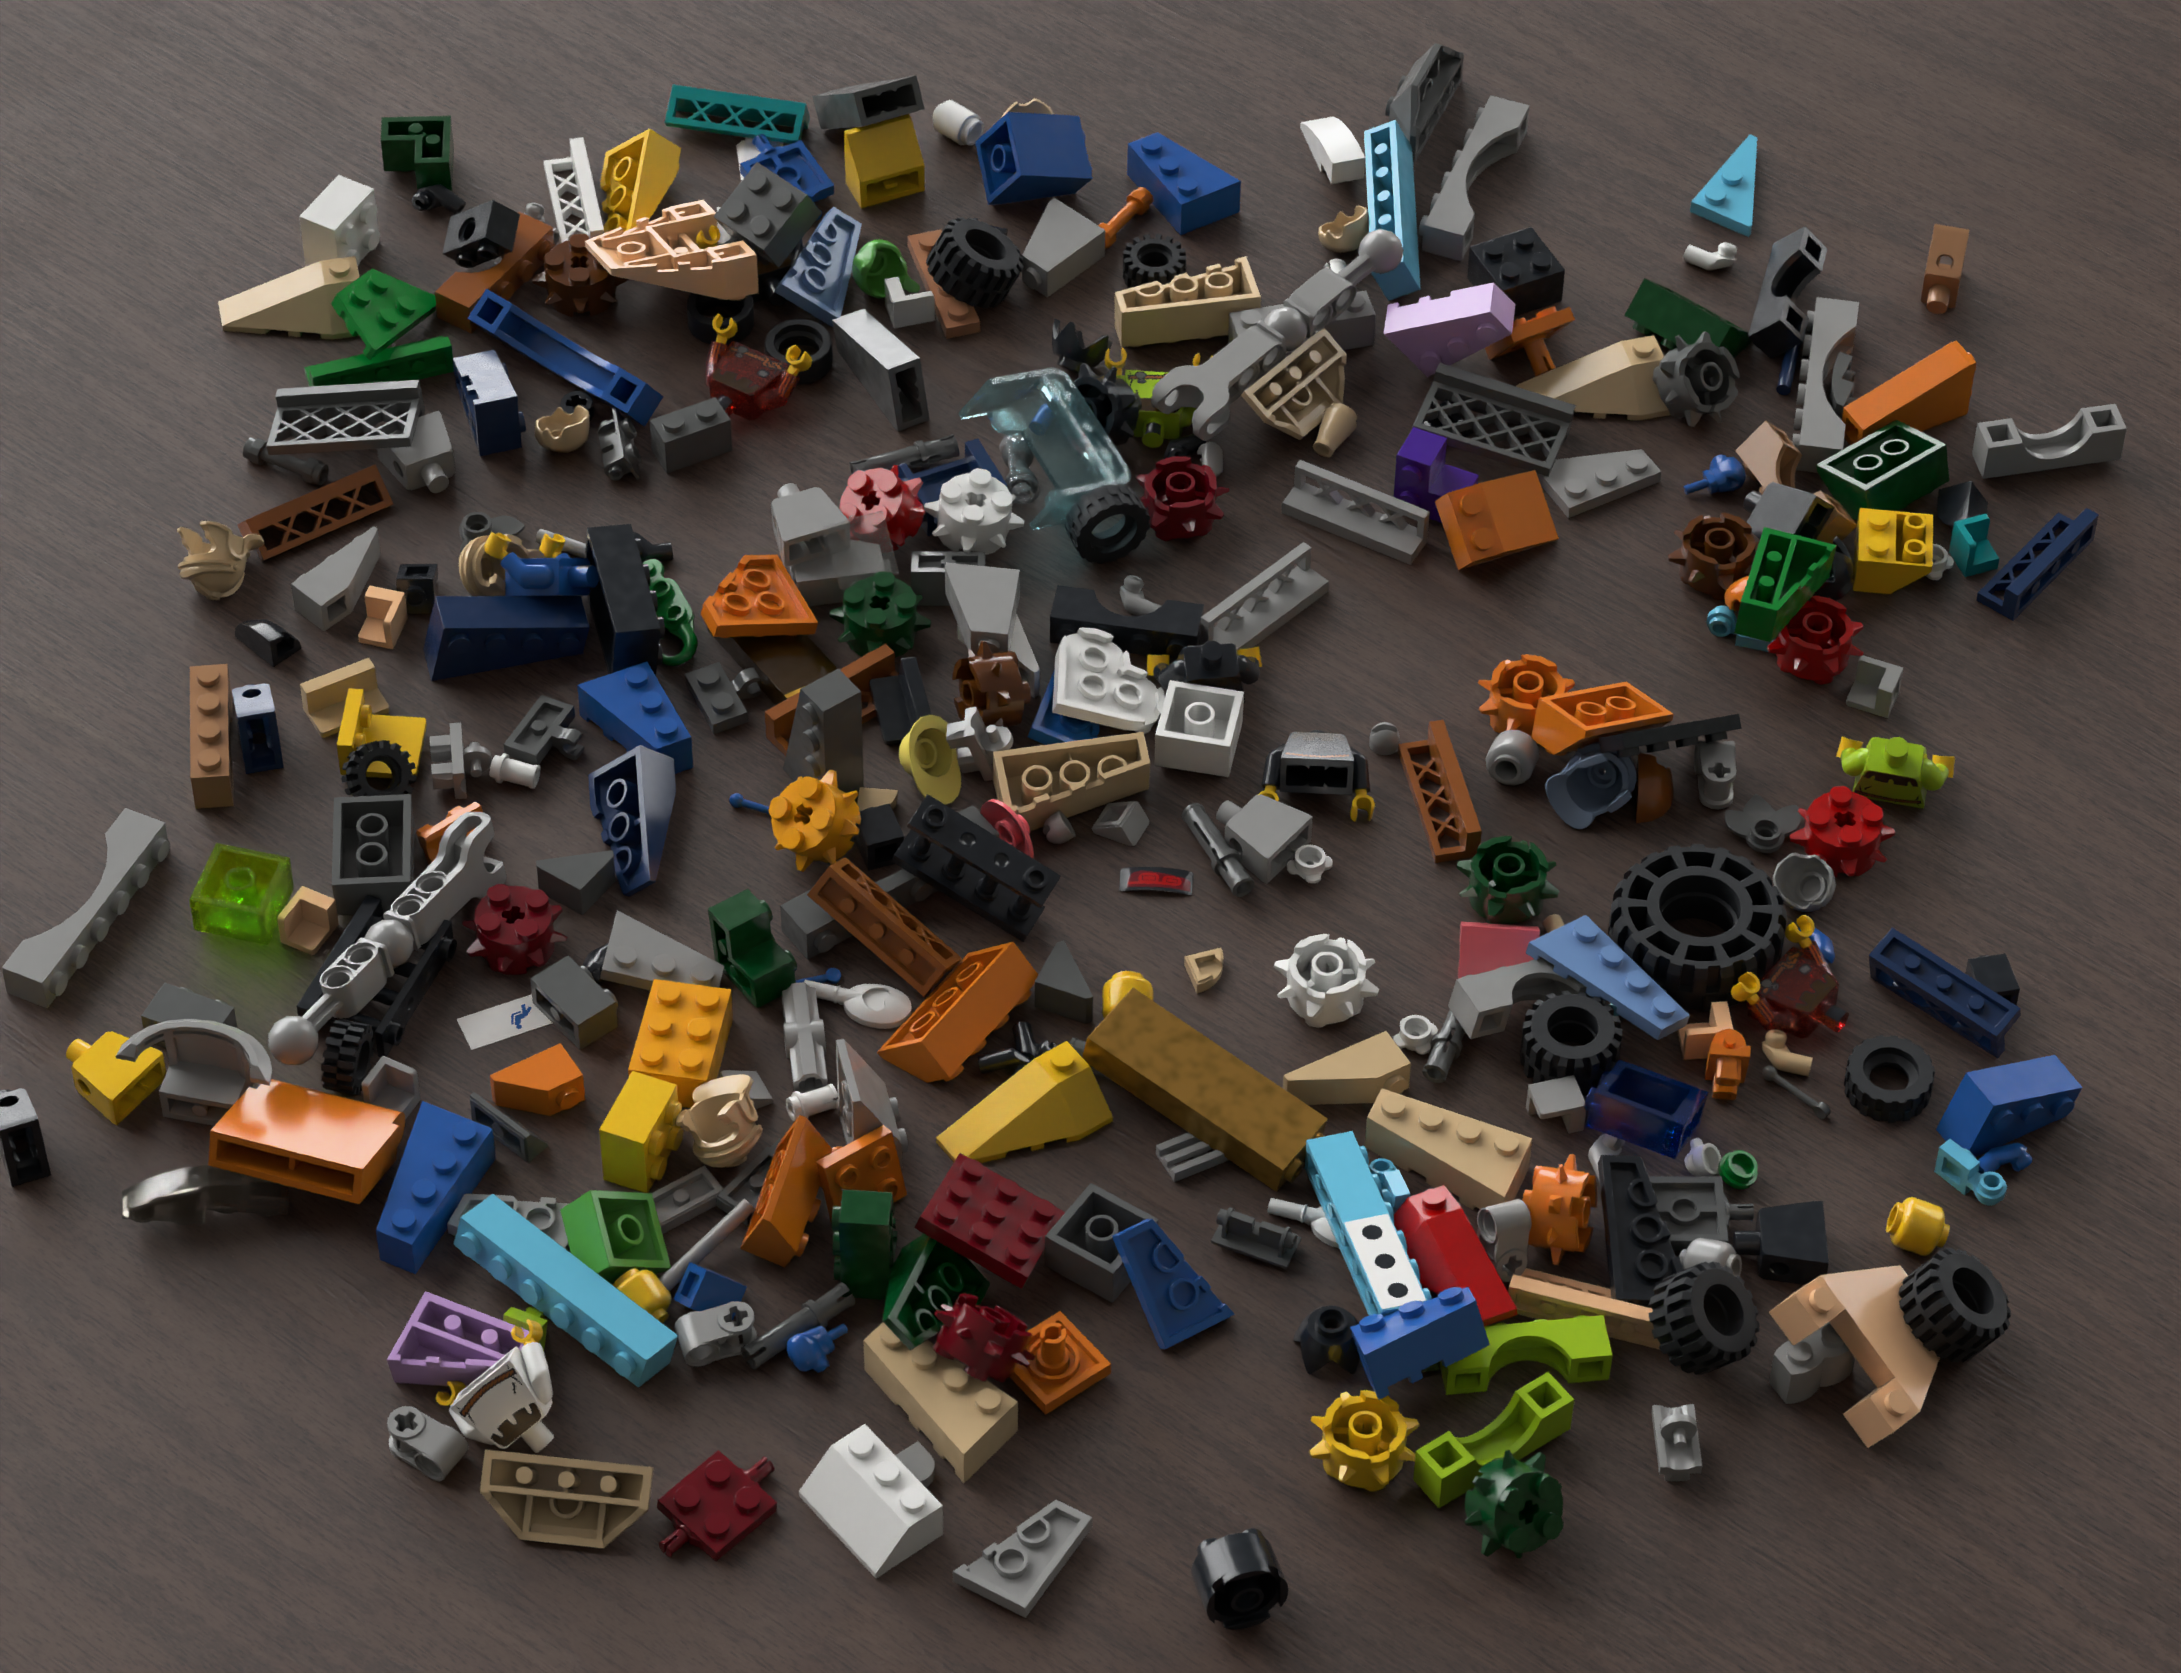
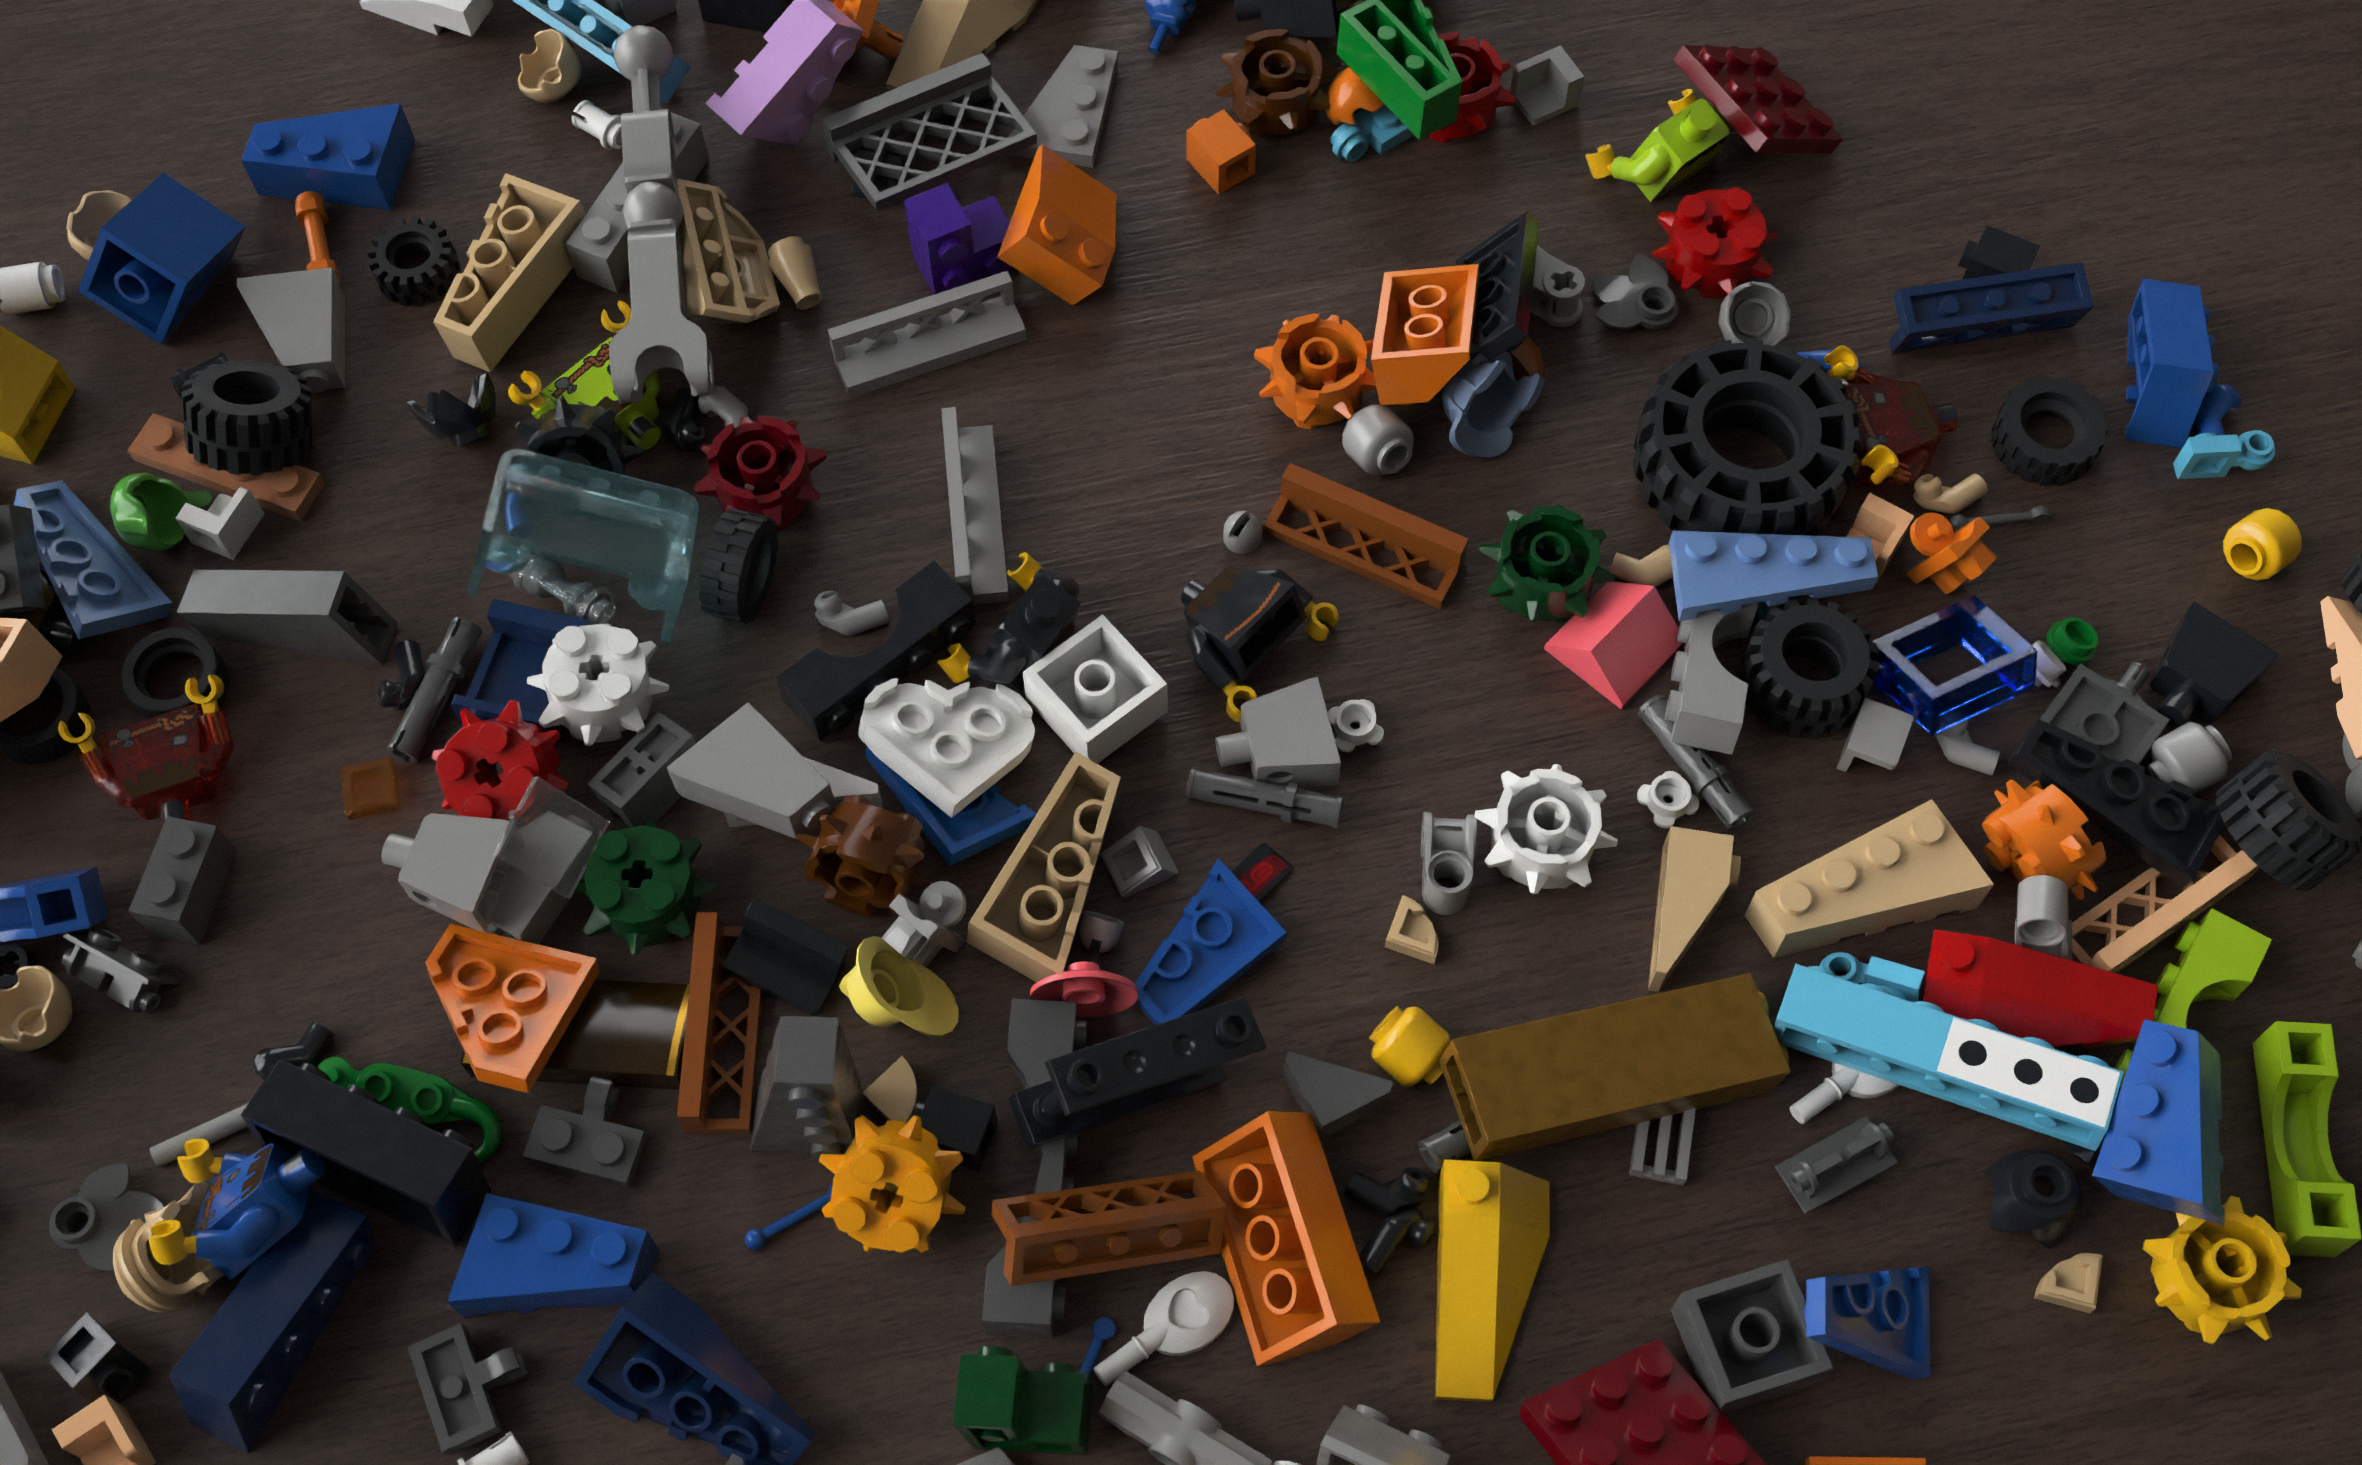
camera: 50 degrees left, 15 degrees up
(822, 473) = (370, 788): none -> clear orange tile
(884, 444) = (411, 673): none -> black arm
(1102, 883) = (1211, 947): none -> blue wing
(1257, 951) = (1447, 853): none -> light grey piece
(1294, 1390) = (2072, 1282): none -> tan tile
(1641, 563) = (1221, 151): none -> orange brick
(1974, 787) = (1758, 99): none -> dark red plate

